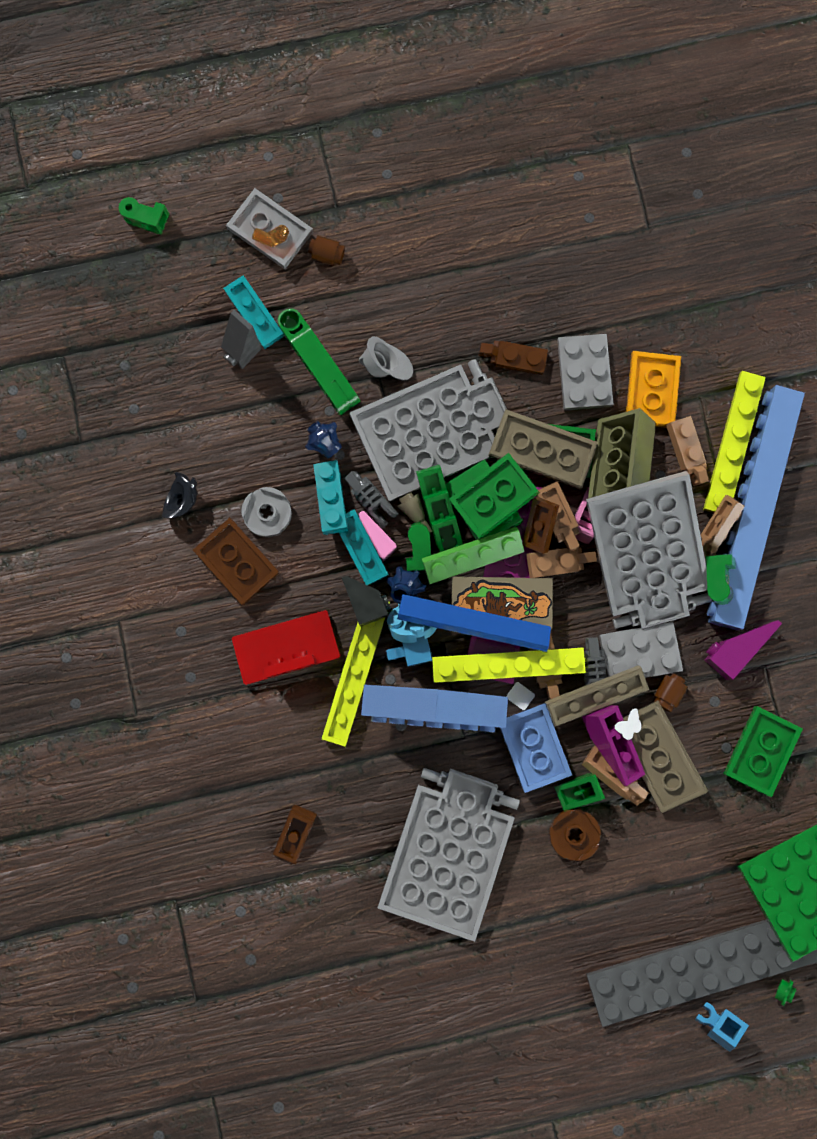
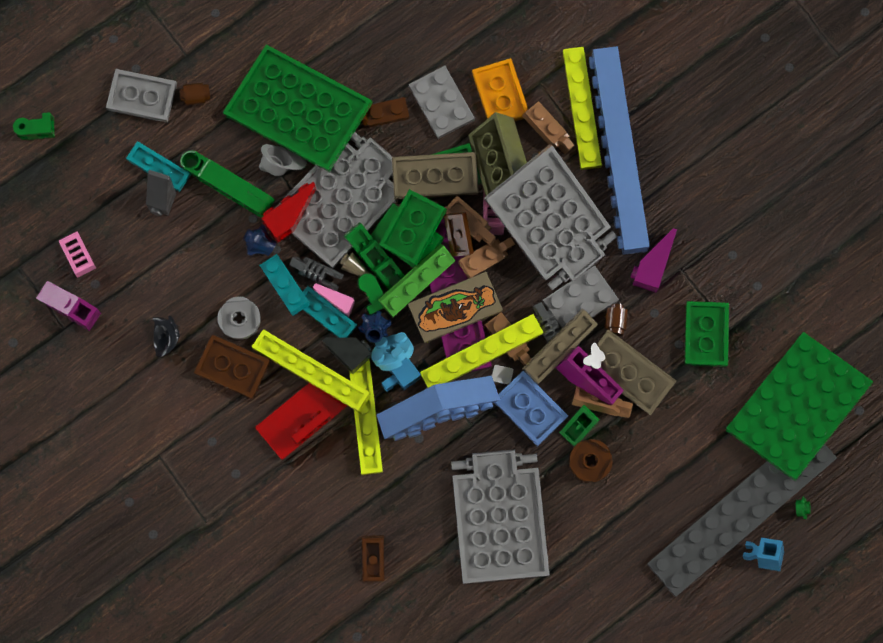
camera: 25 degrees left, 5 degrees down
(94, 420) = (69, 305): none -> magenta slope
(130, 387) = (85, 268): none -> bright pink slope
(273, 237) = (148, 102): clear orange arm -> none
(317, 604) = (311, 370): none -> neon yellow plate
(365, 424) = (286, 217): none -> red slope
(428, 312) = (297, 108): none -> green plate
(474, 623) = (440, 330): blue tile -> none
(718, 578) = (612, 214): green leg -> none
(720, 524) = (597, 177): medium nougat hinge -> none

